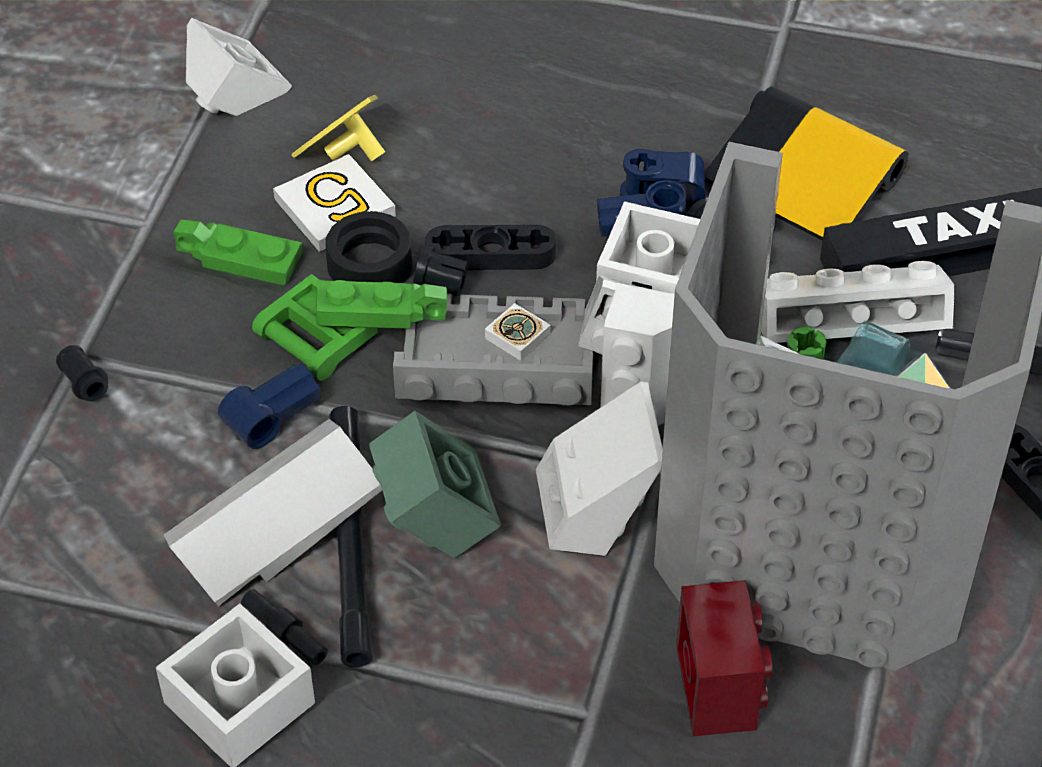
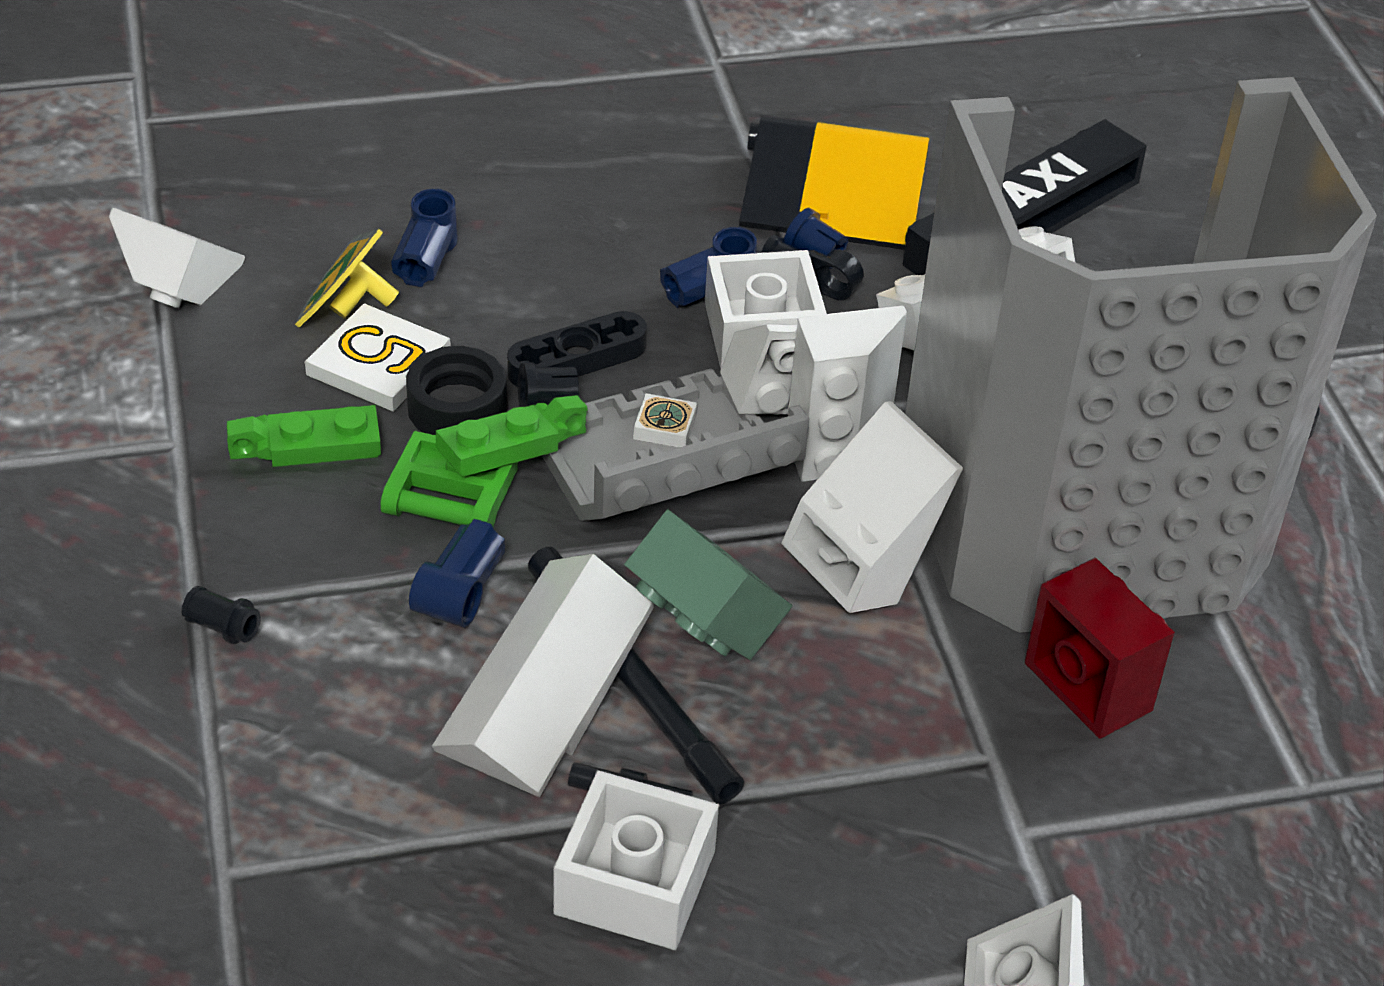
camera: 30 degrees left, 5 degrees down
(437, 110) = (427, 237): none -> dark blue piece
(679, 167) = (701, 225): dark blue piece -> none

